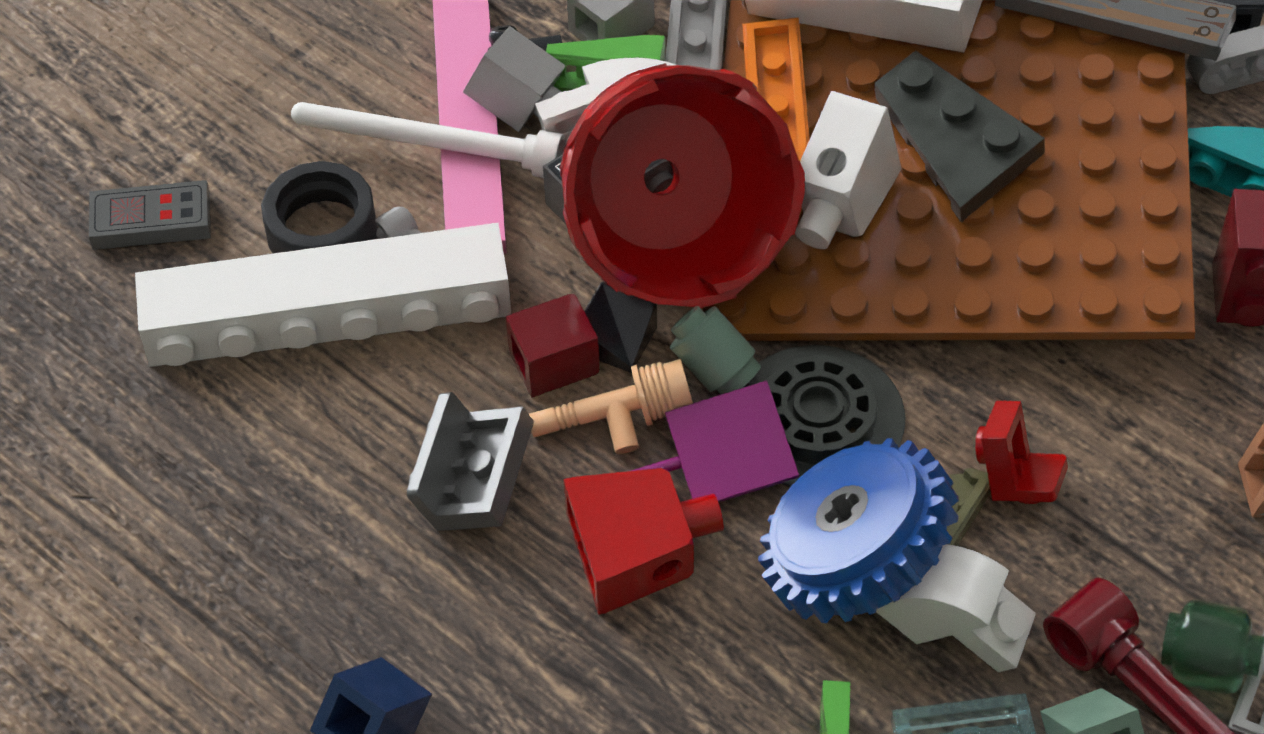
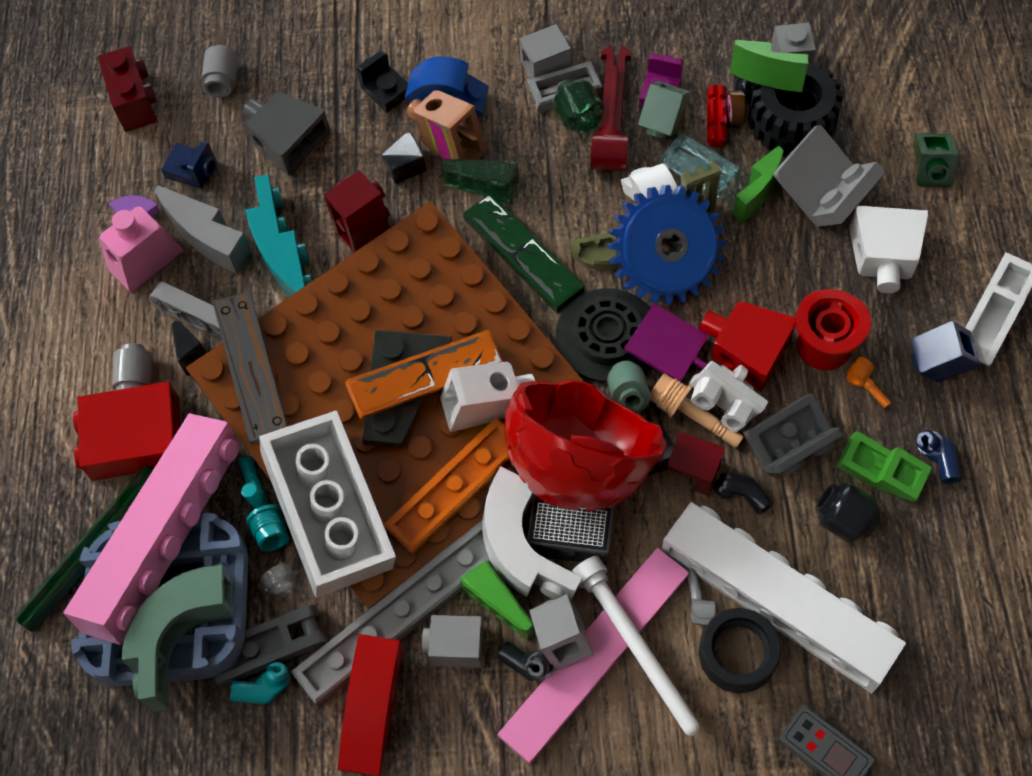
camera: 130 degrees left, 10 degrees up
(274, 611) = (941, 452): none -> dark blue arm
(322, 539) = (884, 469): none -> bright green slope
(326, 434) = (847, 512): none -> black head
(461, 619) = (859, 376): none -> orange hand
(476, 377) = (743, 485): none -> black arm
(544, 604) = (830, 328): none -> red piece
(594, 440) = (728, 391): none -> white hips
(899, 638) = (710, 178): none -> olive tile
(930, 141) = (418, 374): none -> orange tile
(1010, 466) = (557, 228): red bracket -> none
(1054, 419) = (523, 253): none -> dark green tile
(1187, 454) = (482, 177): none -> clear green slope

